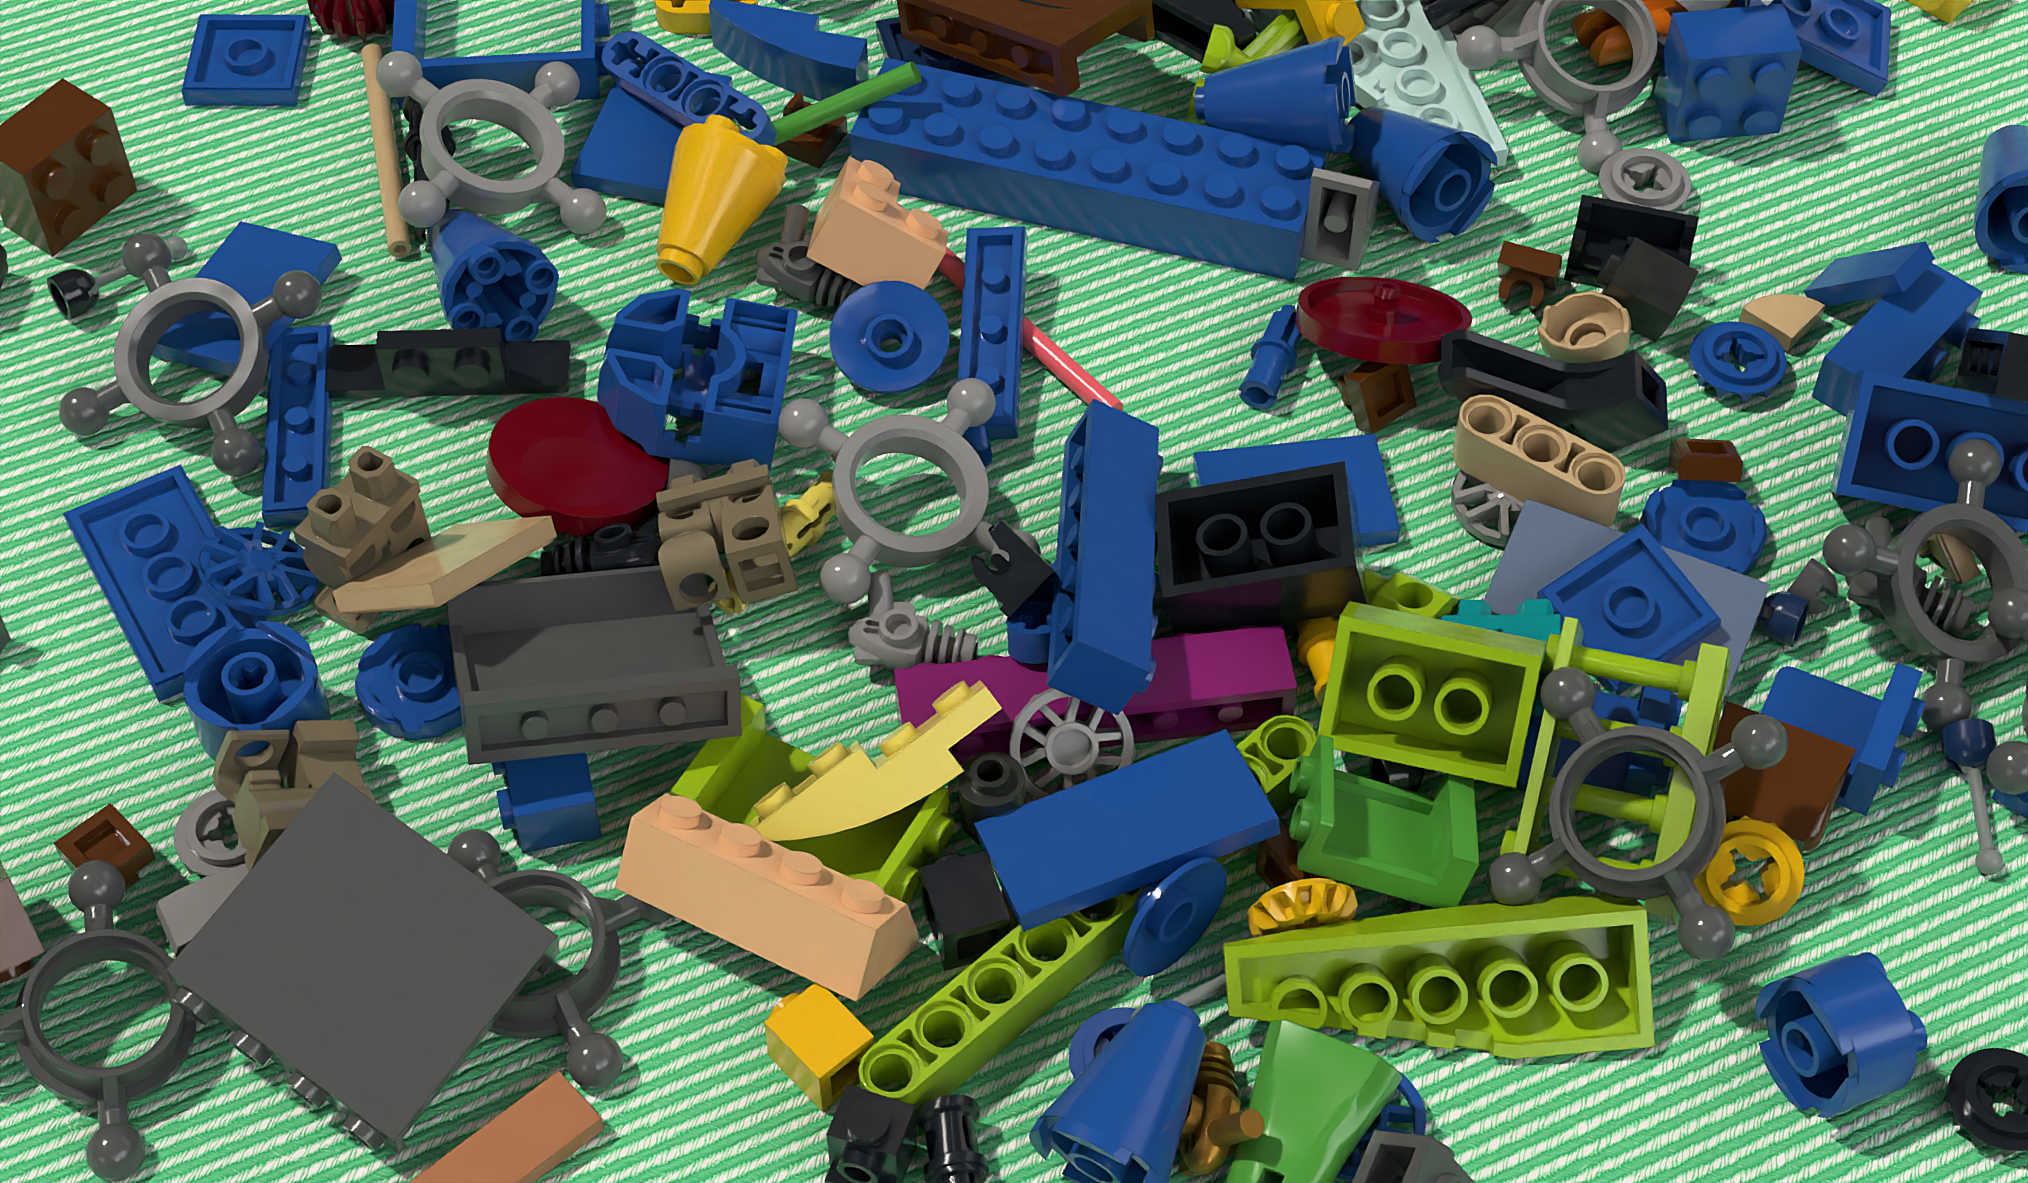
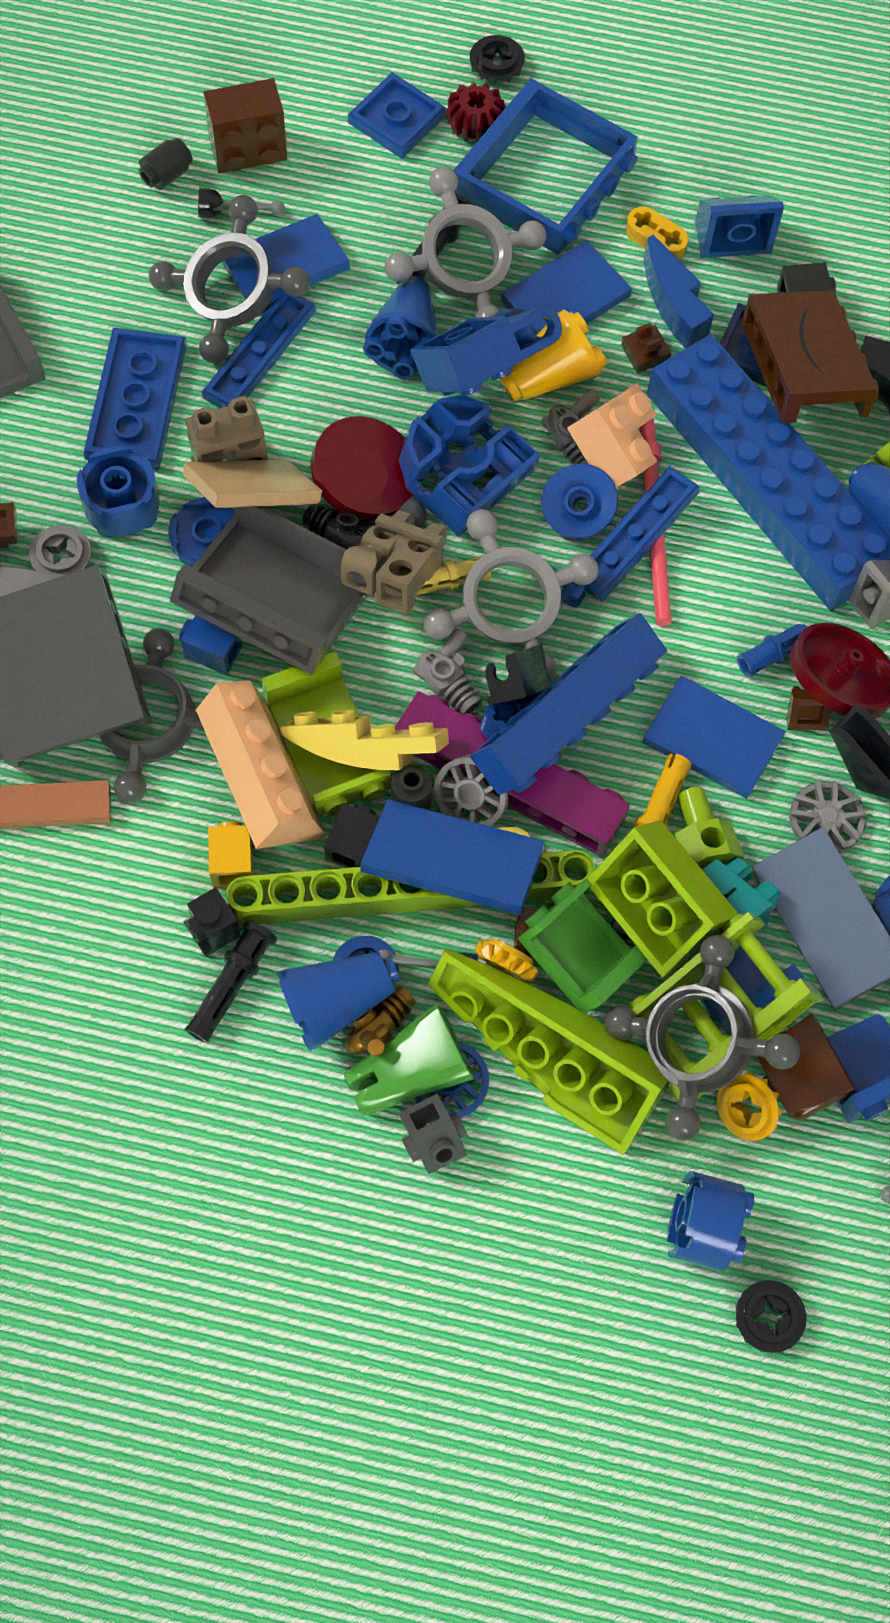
camera: 35 degrees right, 15 degrees up
(256, 570) = (170, 418): blue wheel -> none
(305, 764) = (116, 556): dark tan hips -> none
(386, 154) = (423, 216): tan piece -> none
(447, 365) = (352, 369): black bracket -> none
(622, 228) = (482, 349): none -> blue brick
(688, 94) = (592, 286): blue beam -> none
(846, 102) = (649, 345): bright green bar -> none
(1173, 915) = (440, 916): blue dish -> none
(1260, 550) = (650, 758): black brick -> none
(1536, 460) = (850, 793): tan beam -> none
(1632, 602) = (821, 925): blue tile -> none

